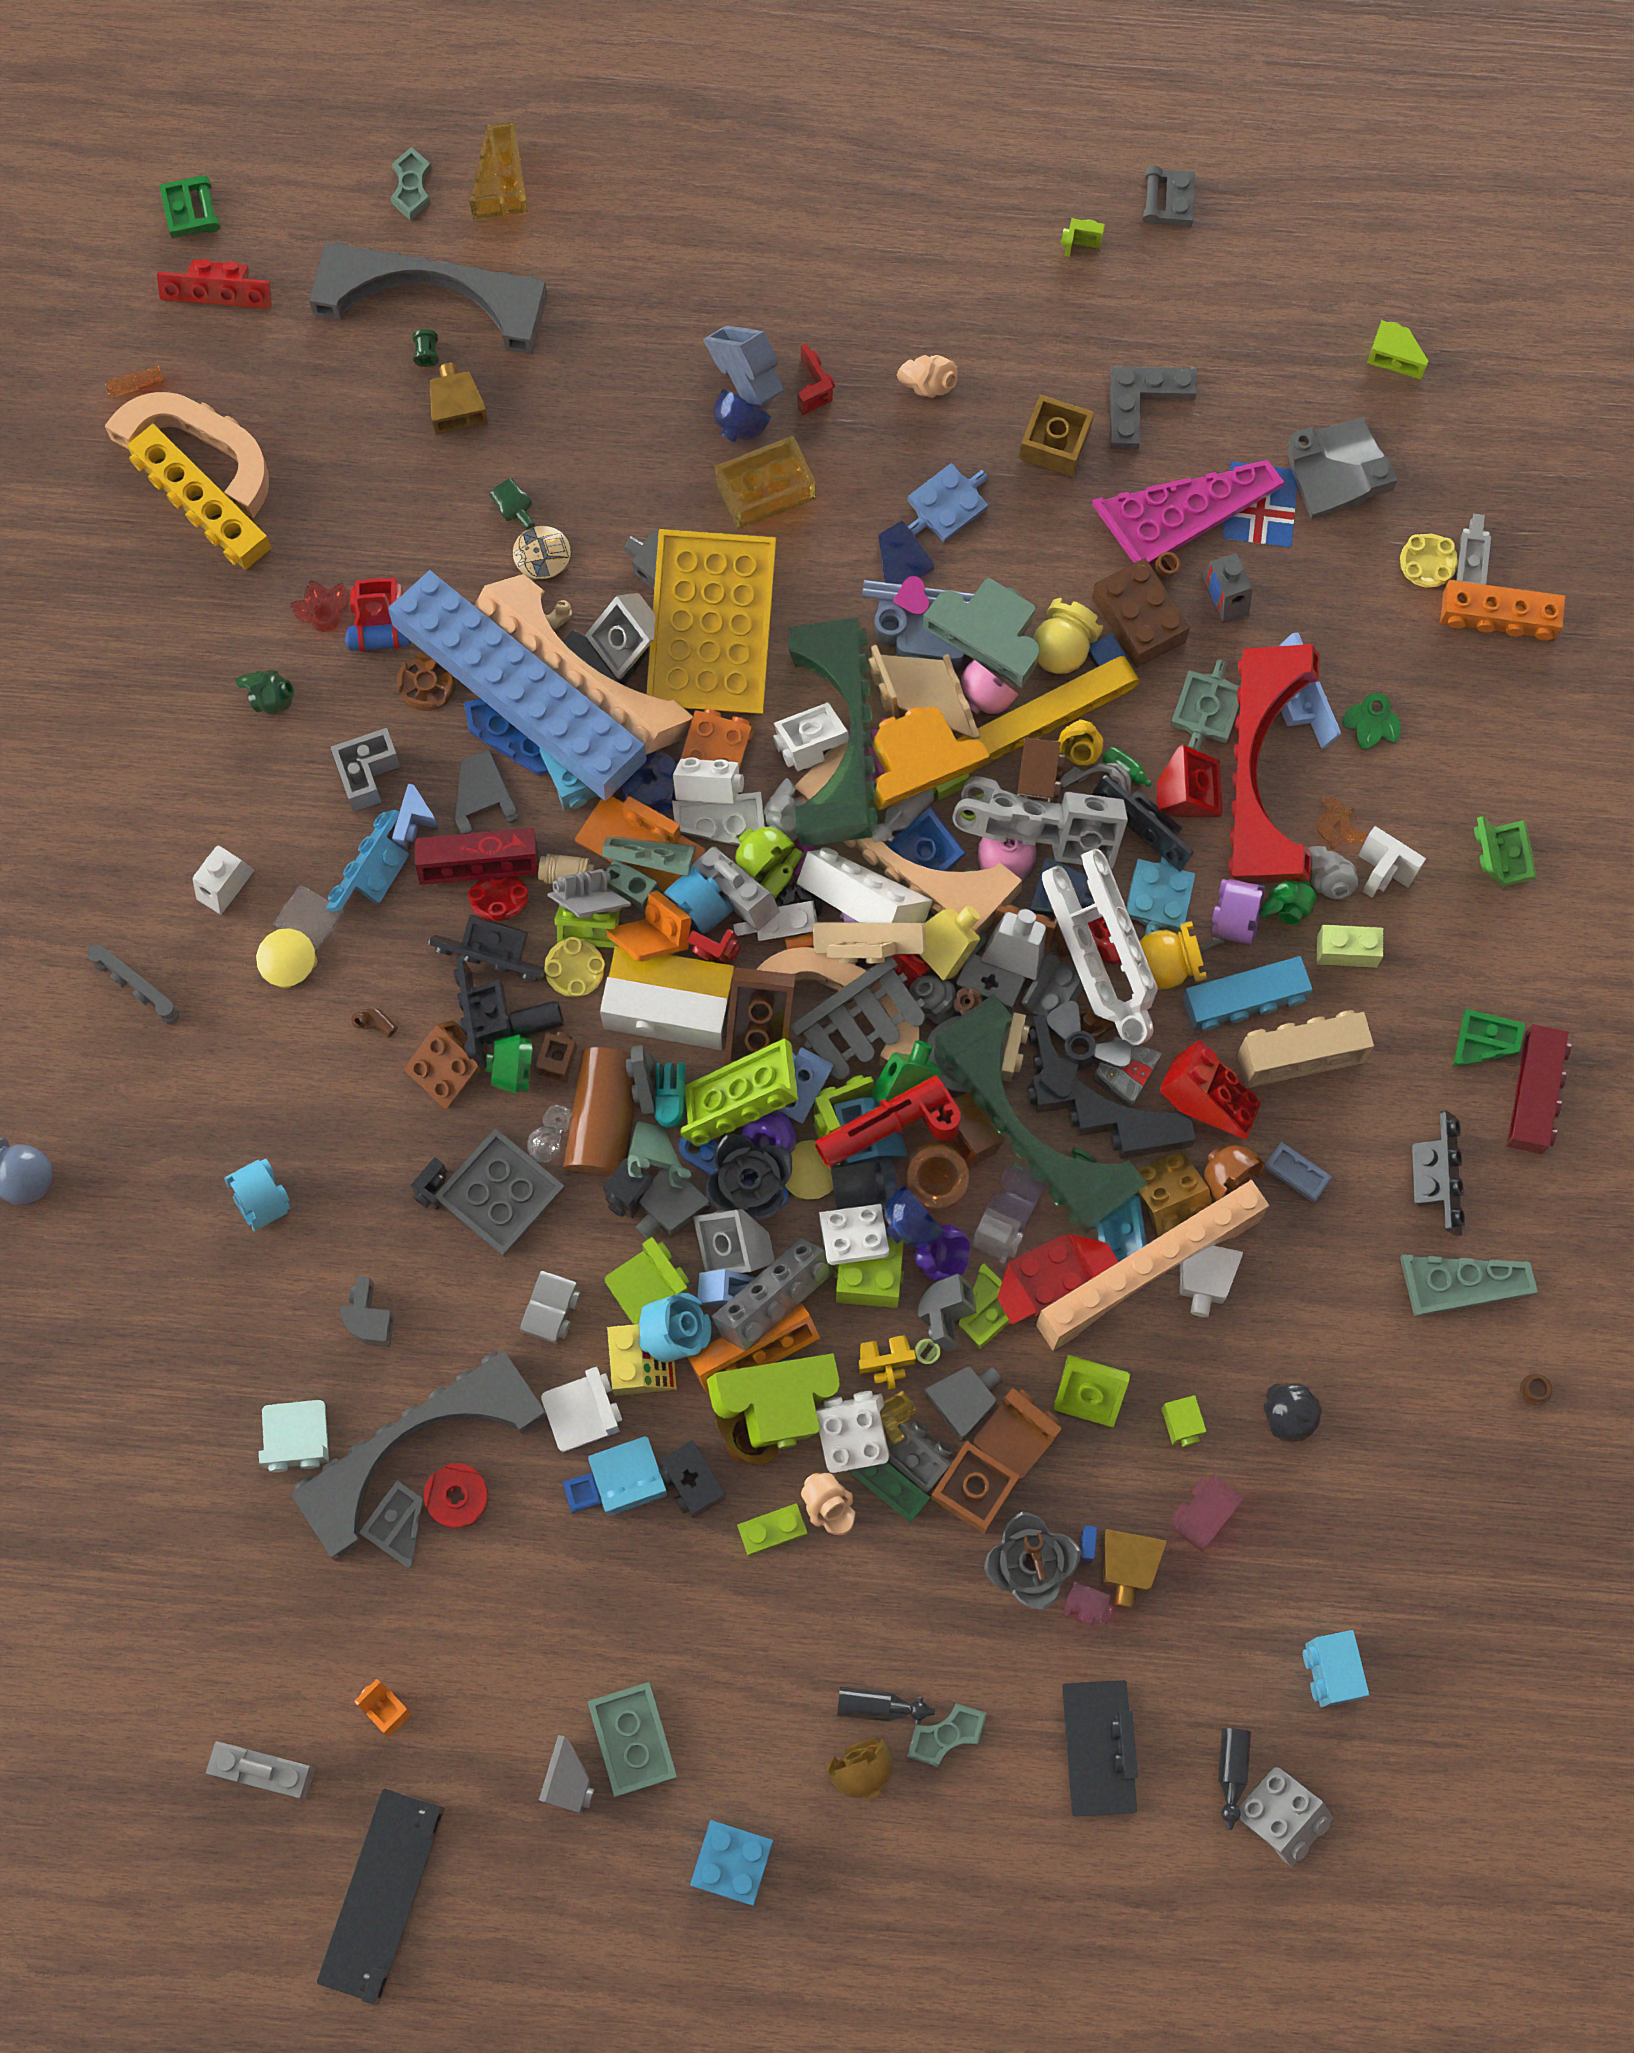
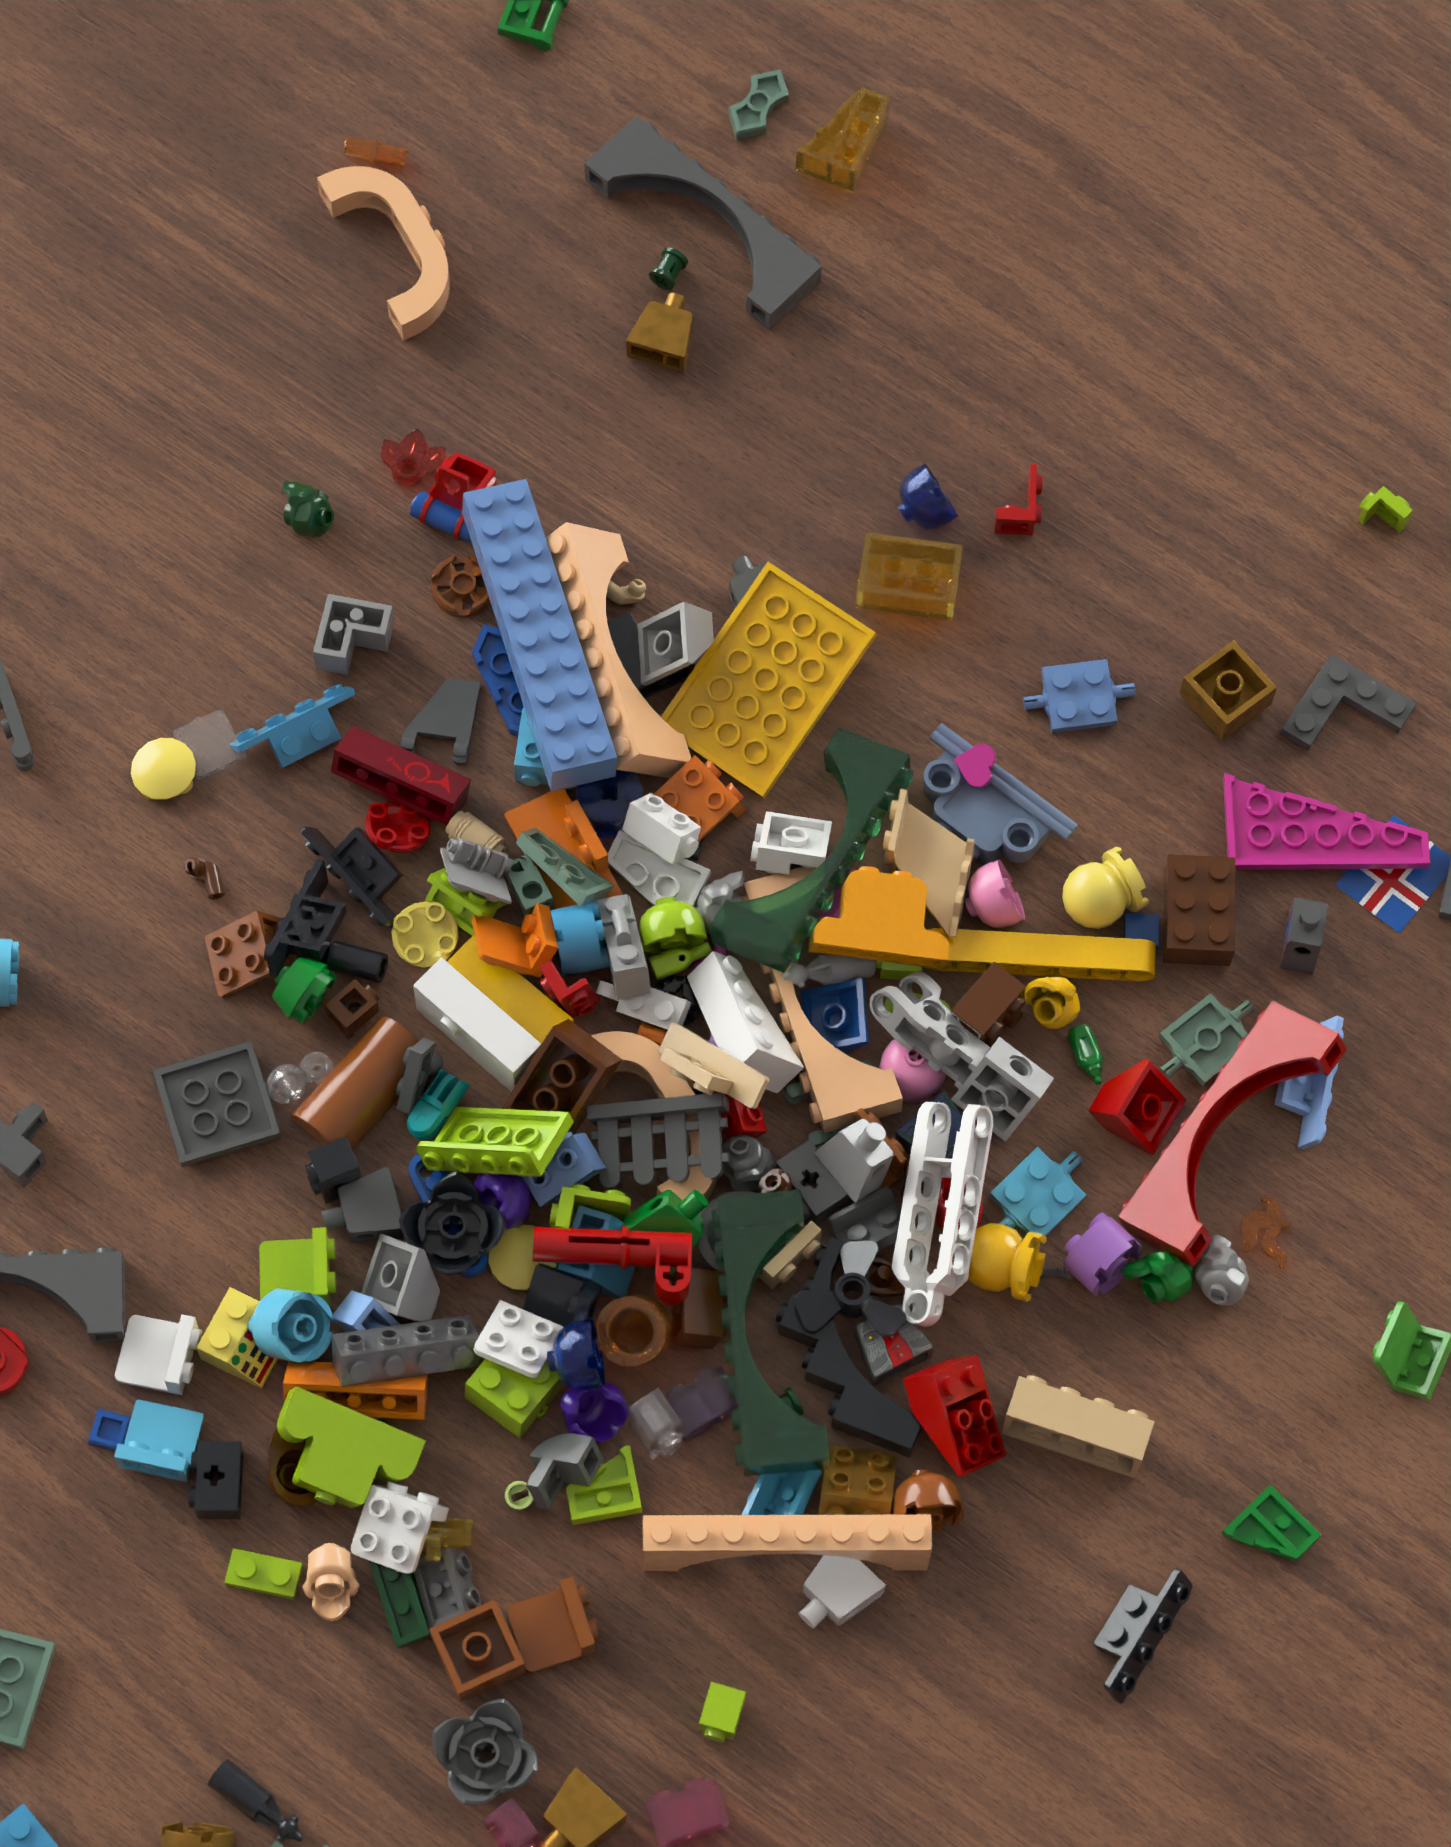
camera: 30 degrees right, 5 degrees down
(154, 445) = (351, 220): yellow brick -> none
(215, 284) = (509, 100): red bracket -> none
(221, 877) = (150, 659): white torso -> none
(412, 812) = (368, 700): light blue slope -> none
(430, 1178) = (157, 1052): black bracket -> none
(512, 502) = (655, 461): dark green piece -> none
(541, 552) = (652, 524): tan dish -> none
(549, 1308) = (192, 1239): light grey brick -> none
(653, 1147) = (384, 1145): sand green flag -> none
(748, 361) = (963, 451): sand blue brick -> none
(899, 1357) = (461, 1474): yellow hips -> none
(902, 555) = (1000, 722): clear blue wing -> none
(929, 375) = (1141, 562): light nougat head -> none
(950, 940) = (791, 1114): light yellow torso -> none
(964, 1399) = (525, 1562): dark grey torso -> none
(988, 628) = (1029, 837): sand green brick -> none
(1036, 1556) = (492, 1746): reddish brown hand -> none
(1051, 1273) = (683, 1489): red piece -> none
(1087, 1543) = (552, 1772): blue tile -> none
(1091, 1391) = (651, 1627): lime bracket -> none
(1116, 772) = (1071, 1052): light grey helmet -> none
(1149, 823) = (1071, 1120): black bracket -> none
(1170, 564) = (1264, 878): dark orange hinge -> none
(1247, 994) = (1060, 1341): dark azure brick -> none
(1292, 1411) = (834, 1769): black hair -> none
(1297, 1172) = (995, 1543): sand blue plate -> none
(1349, 946) = (1193, 1354): yellowish green brick -> none
(1373, 725) = (1364, 1154): green plate -> none
(1390, 860) = (1284, 1293): white bracket -> none
(1460, 1283) = (1081, 1746): sand green wing -> none
(1538, 1089) = (1292, 1606): dark red brick -> none

